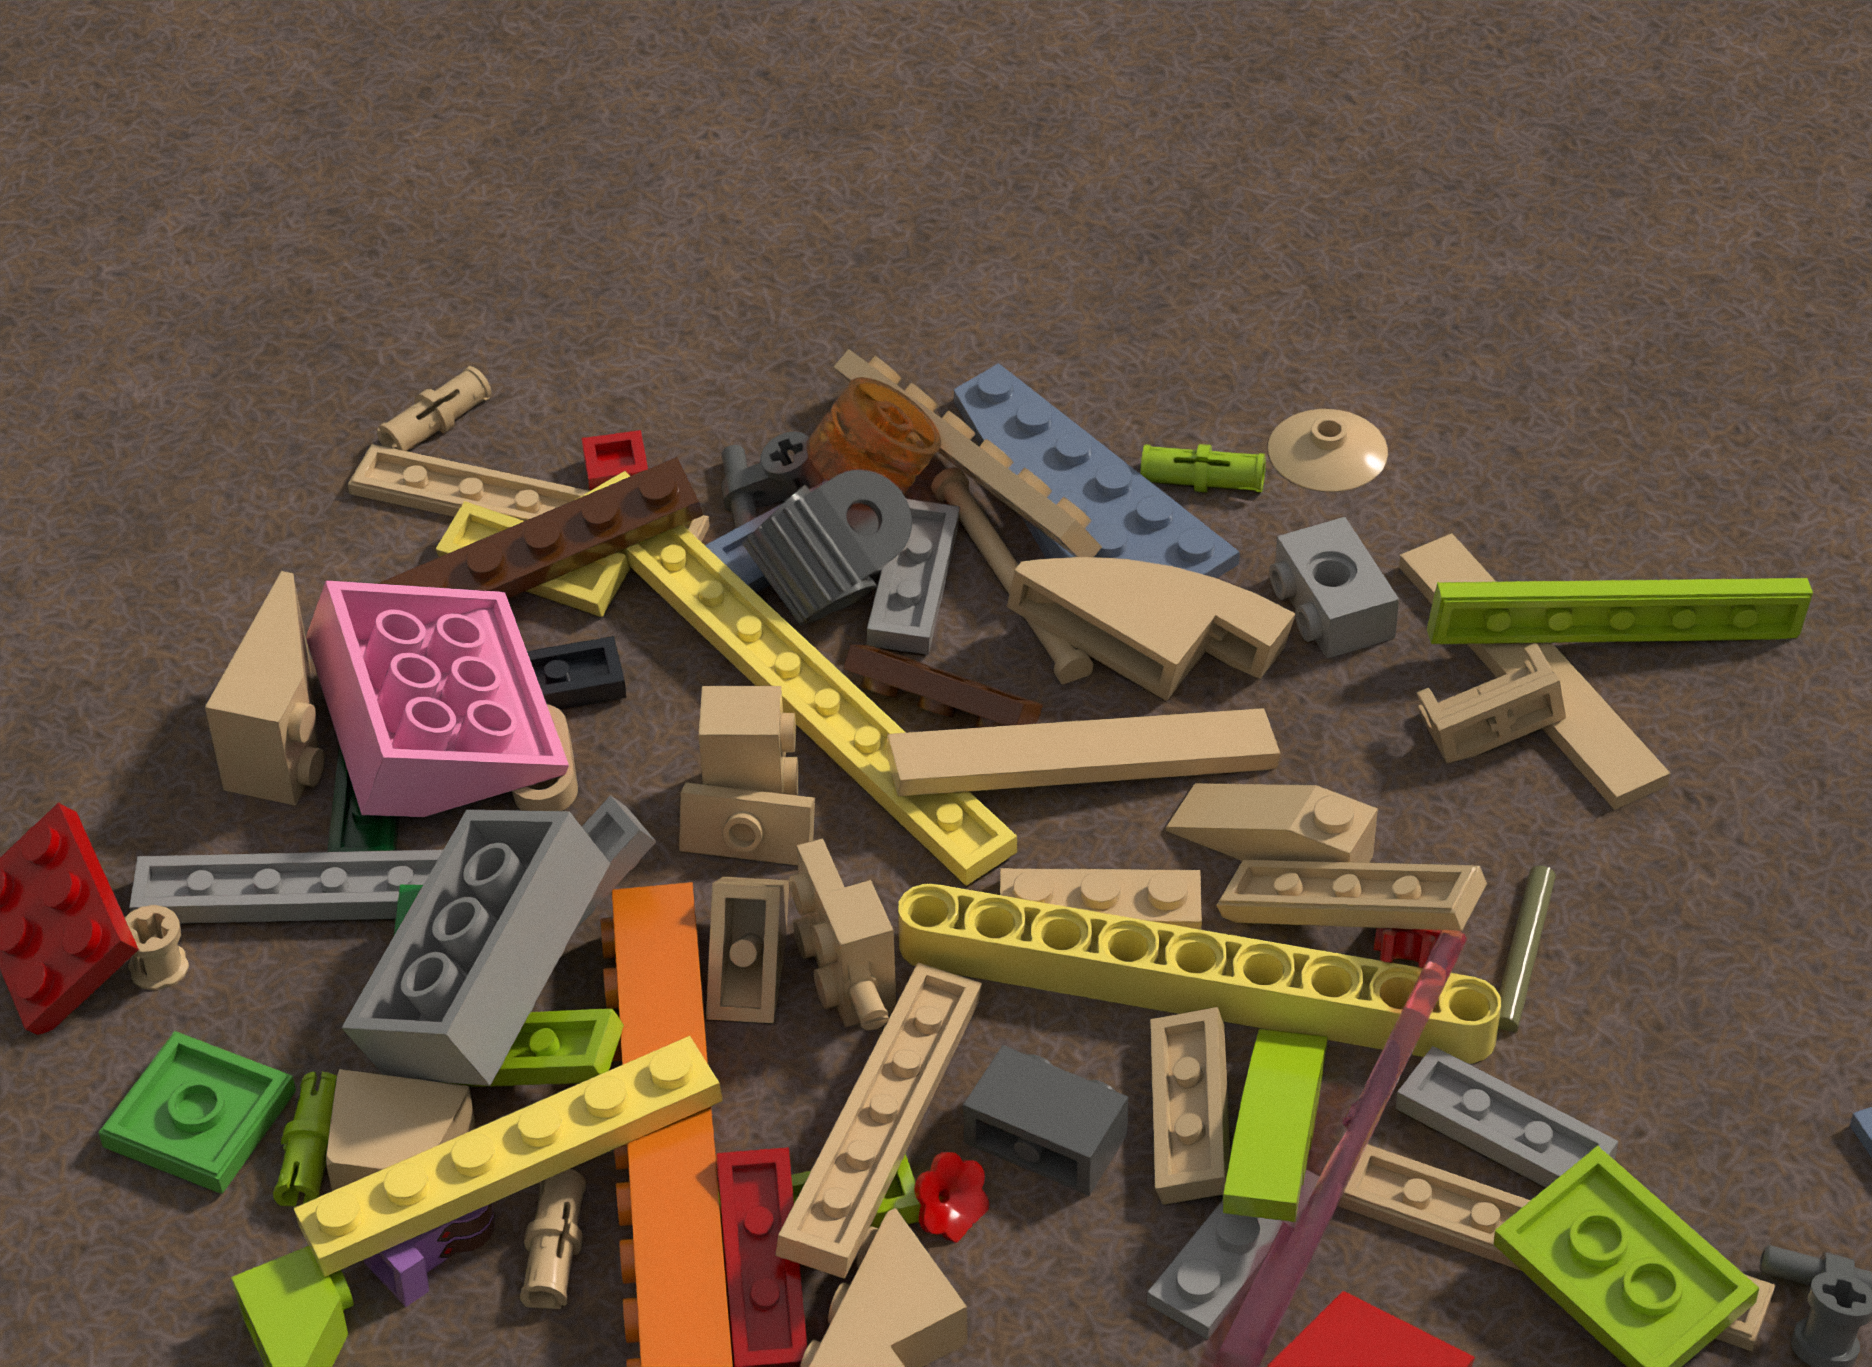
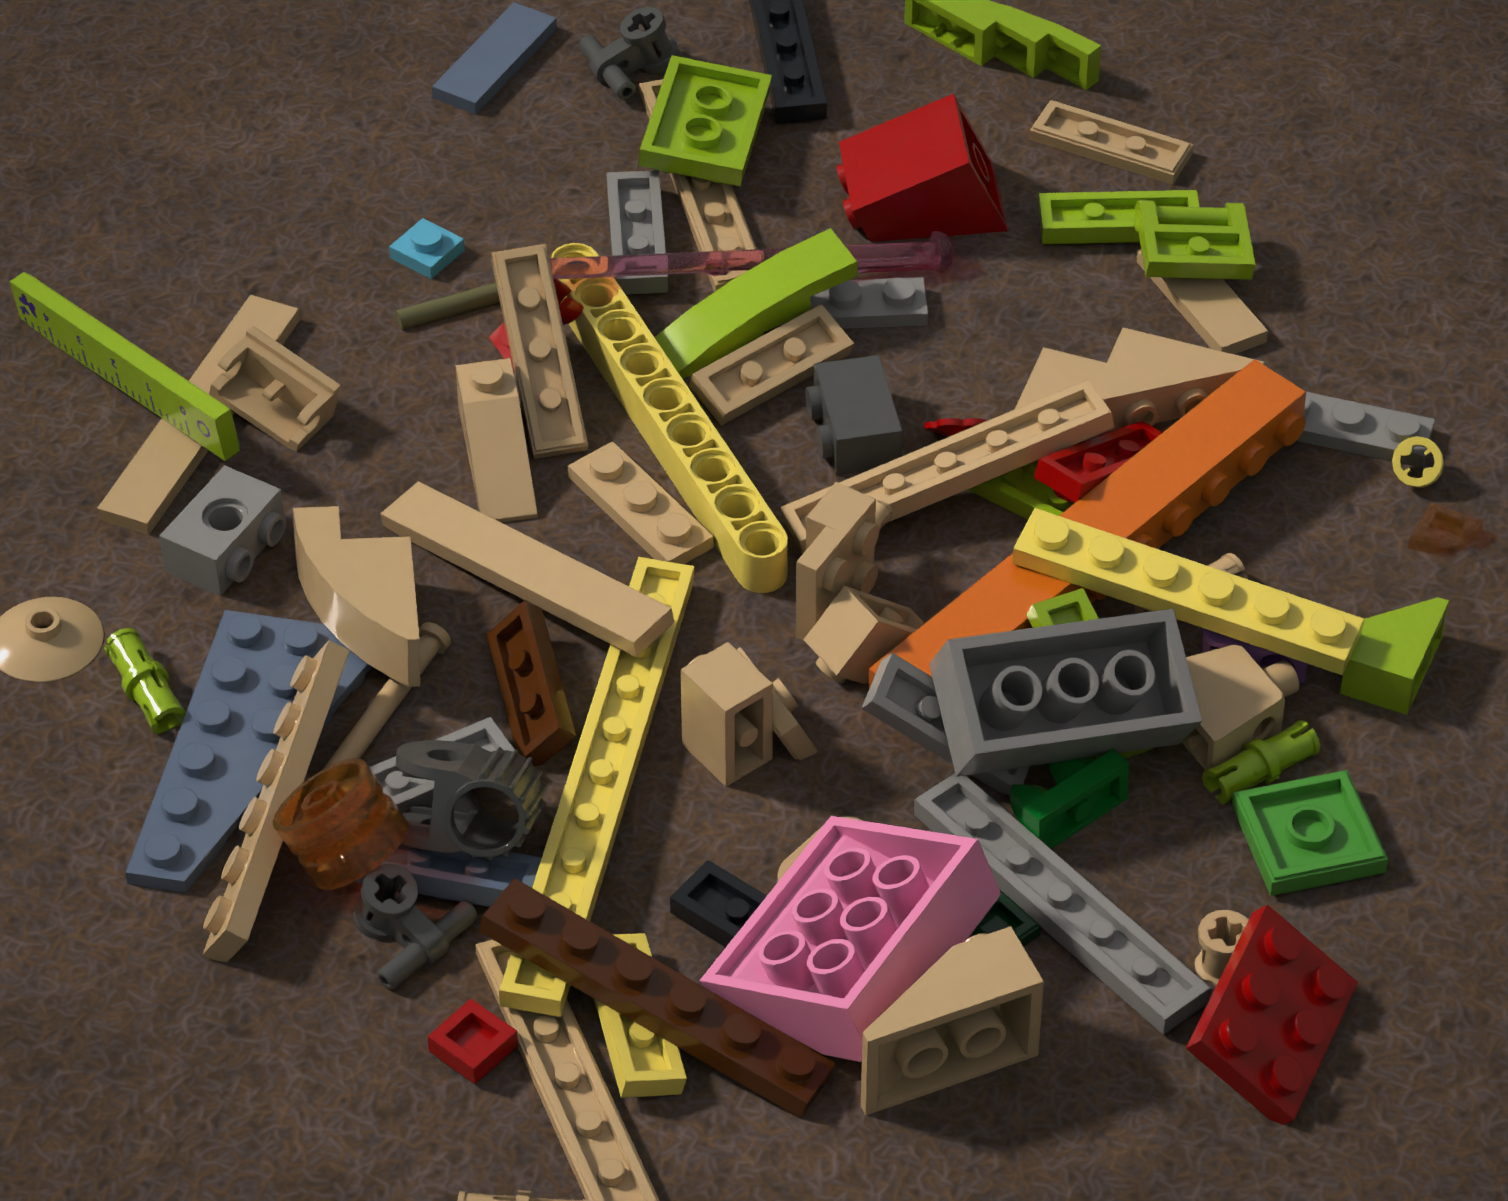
camera: 130 degrees left, 0 degrees up
(1637, 951) = (427, 248): none -> medium azure plate

